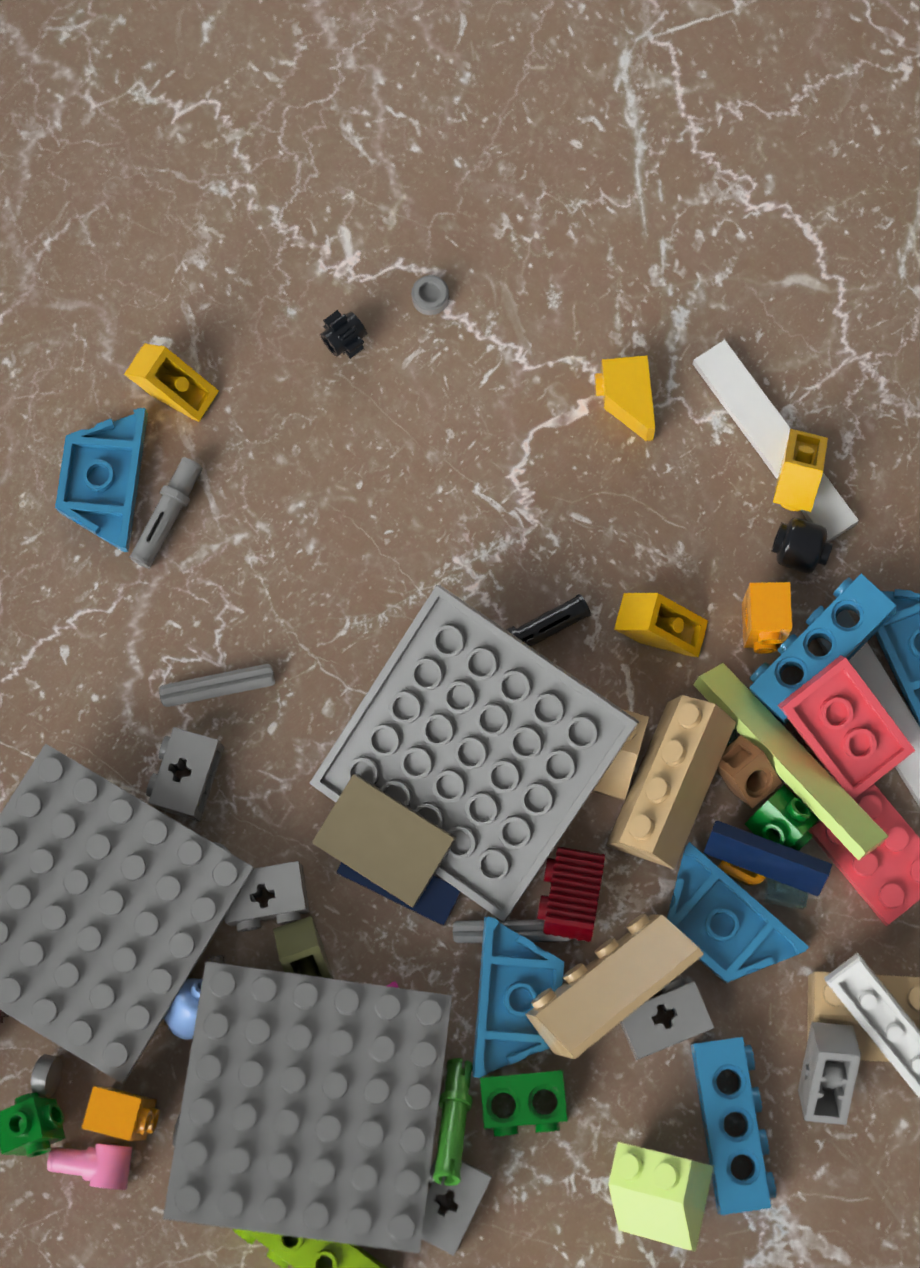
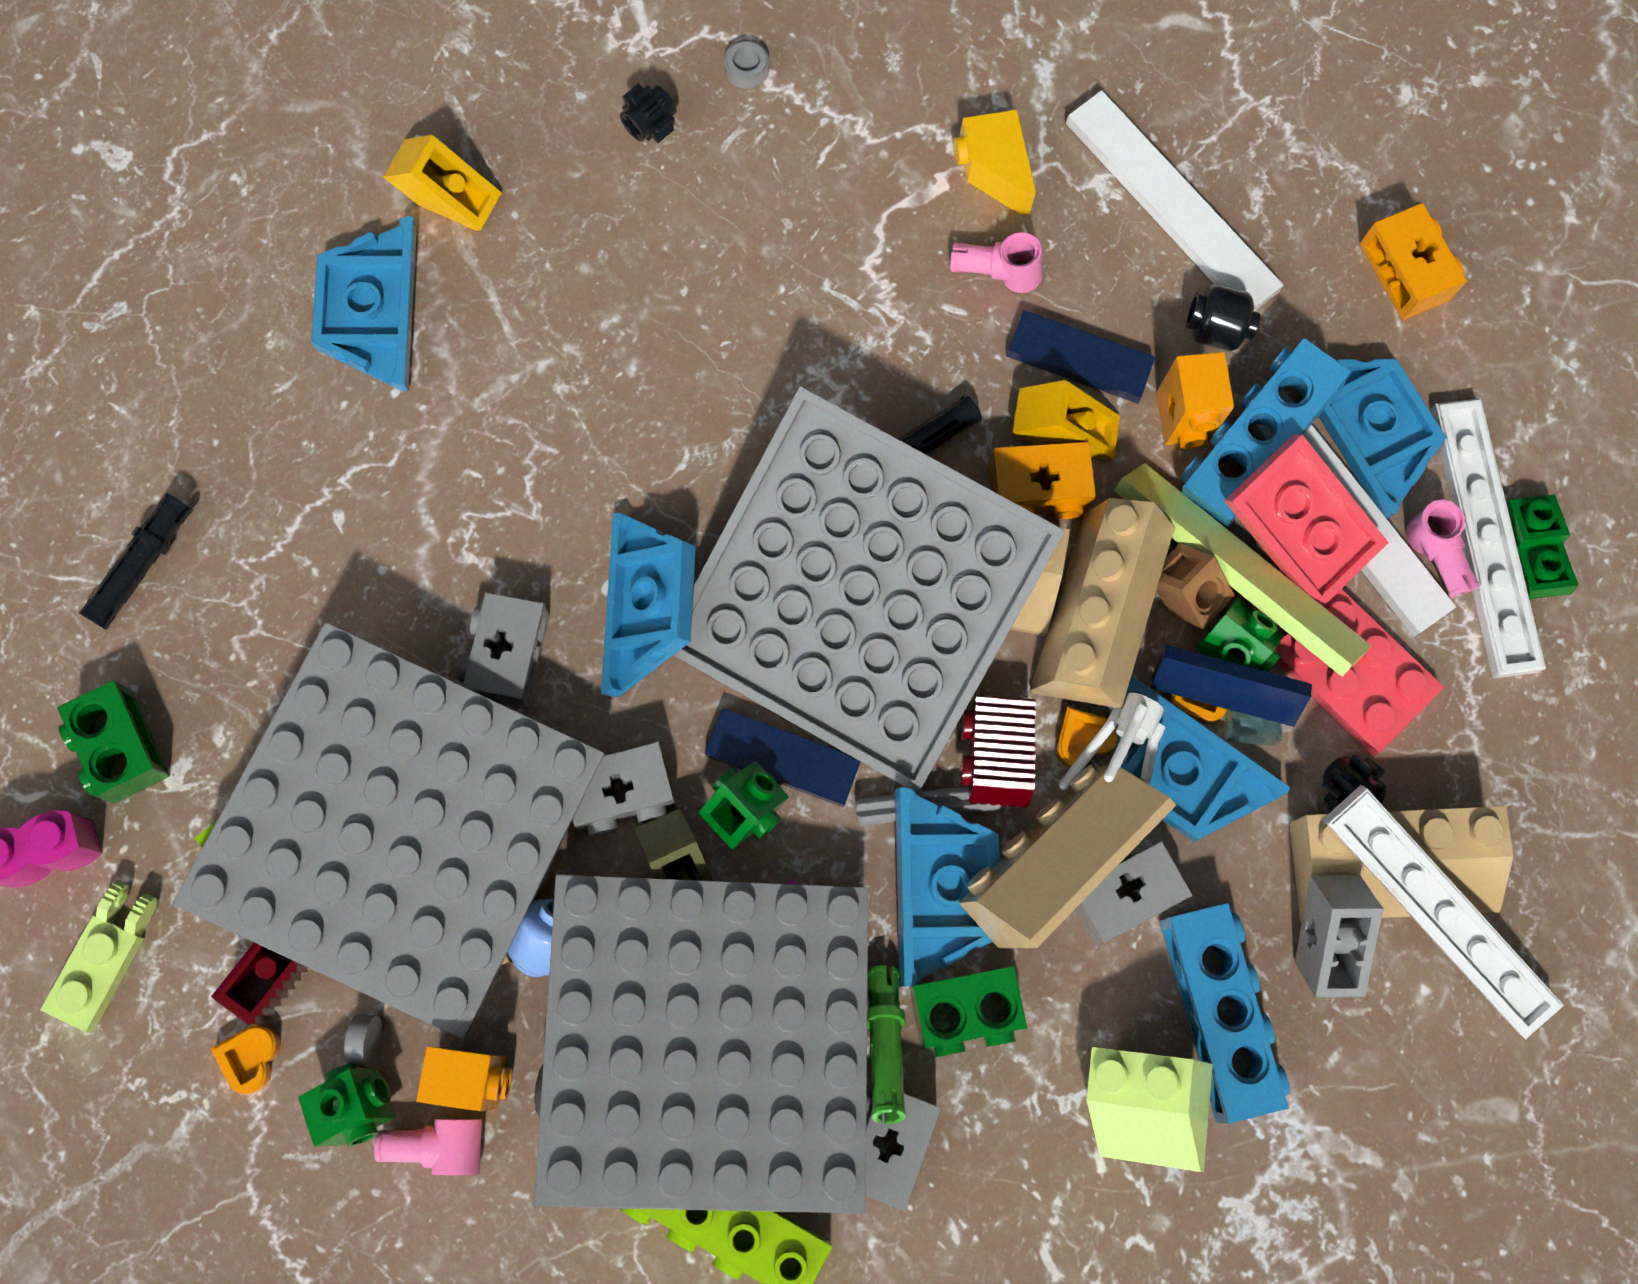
camera: 20 degrees left, 0 degrees up
(170, 505) = (458, 322): light grey pin -> none
(217, 685) = (533, 541): light grey axle -> none
(300, 744) = (645, 602): none -> dark azure wing
(362, 918) = (744, 804): none -> green brick
(384, 840) = (761, 707): dark tan tile -> none
(620, 482) = (1000, 261): none -> bright pink pin
(645, 888) = (1077, 732): none -> light orange tile
(653, 662) = (1060, 467): none -> light orange brick
(680, 567) = (1081, 356): none -> dark blue tile
(683, 881) = (1135, 723): none -> white plant
(800, 471) = (1213, 231): yellow slope -> none
(866, 943) = (1348, 774): none -> black gear

